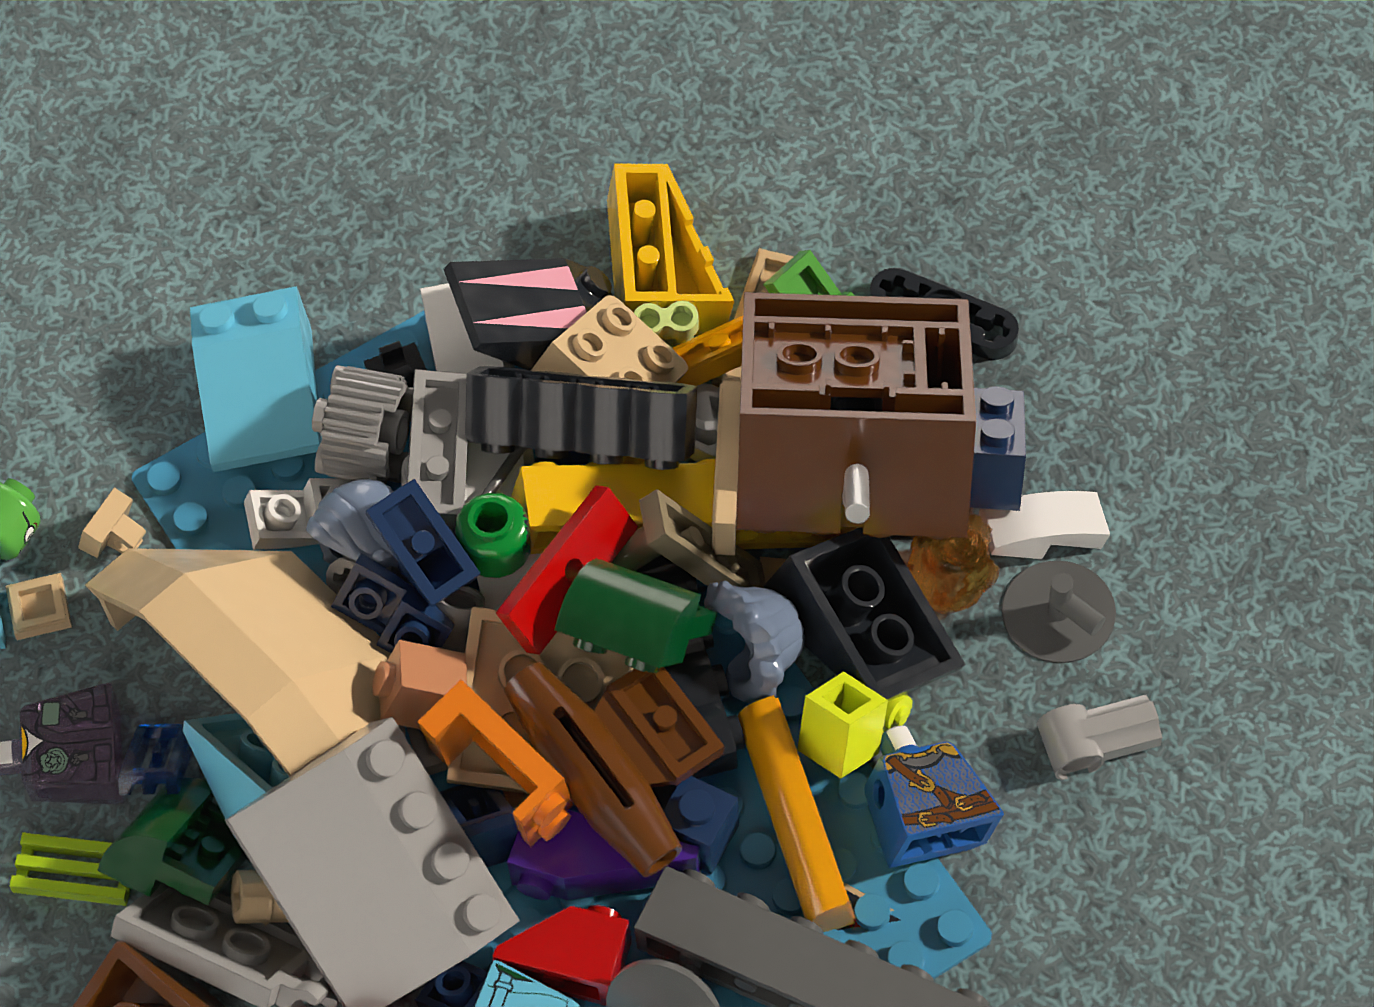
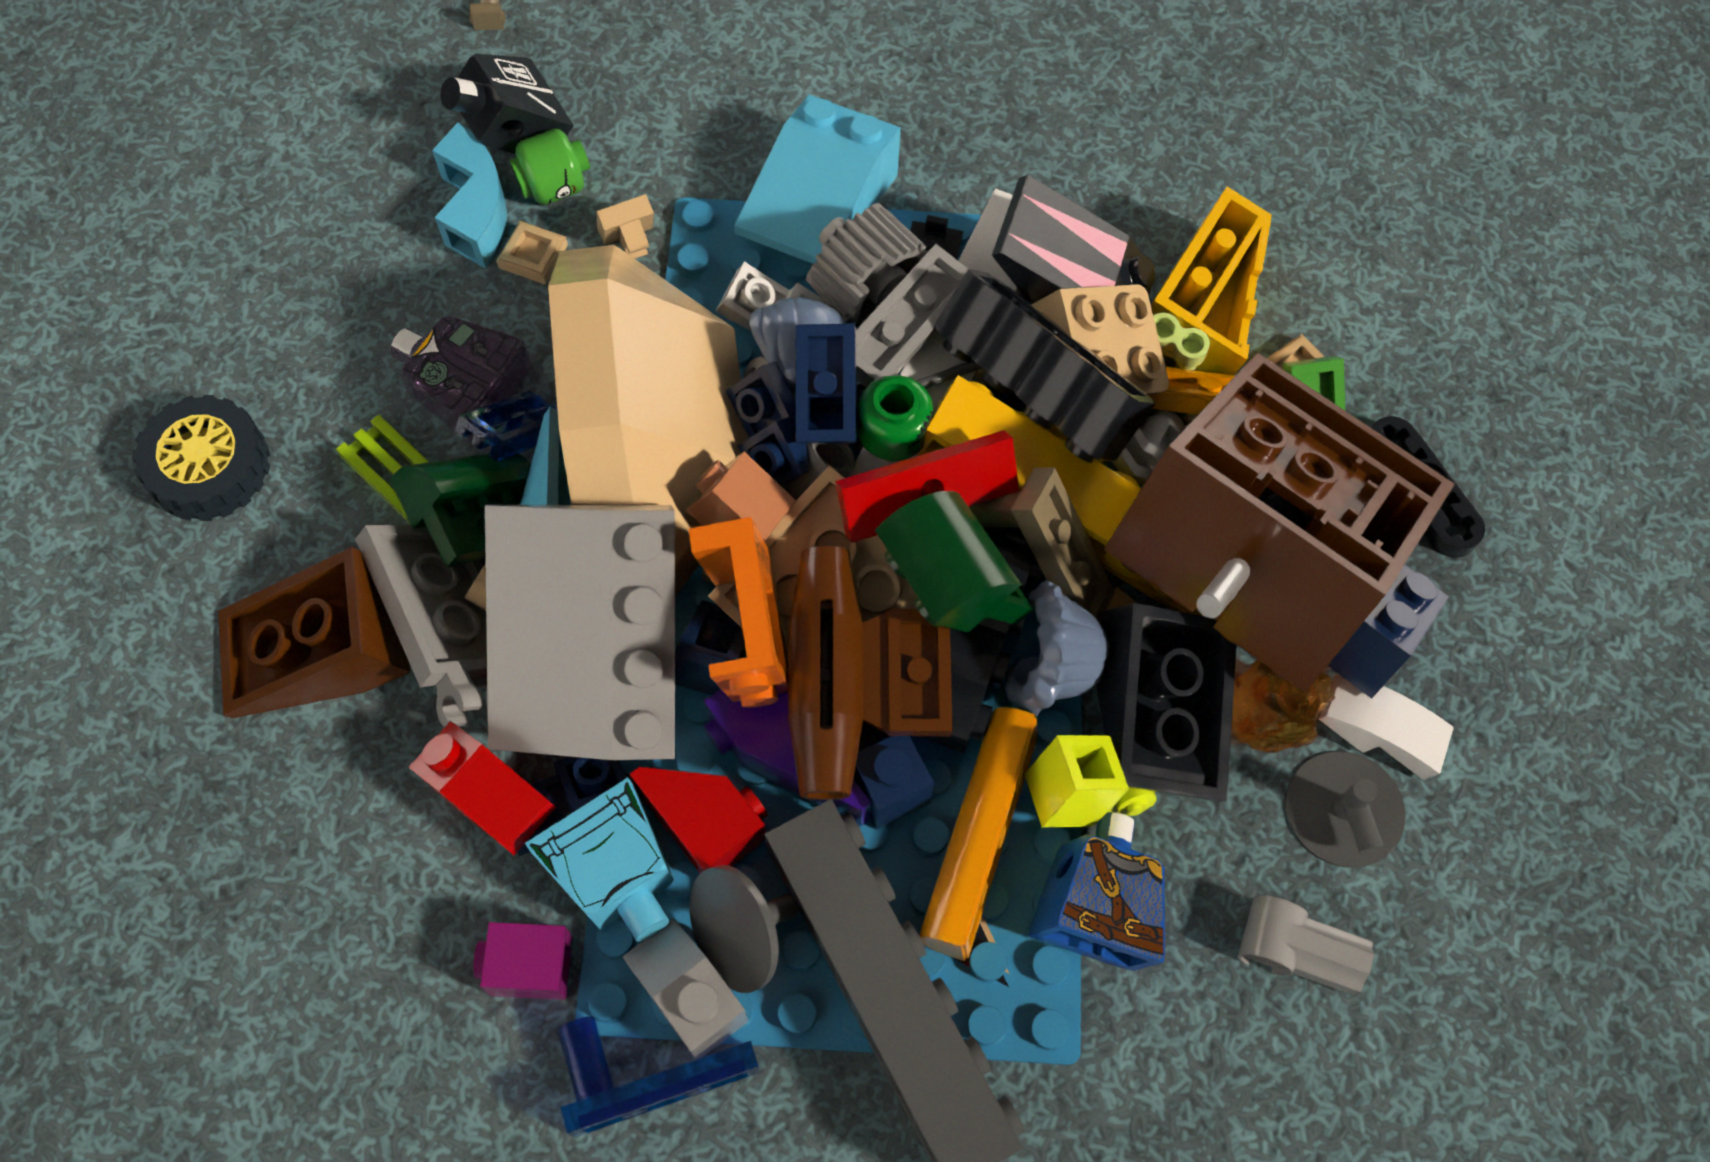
camera: 30 degrees right, 5 degrees up
(726, 469) = (1107, 518): tan tile -> none

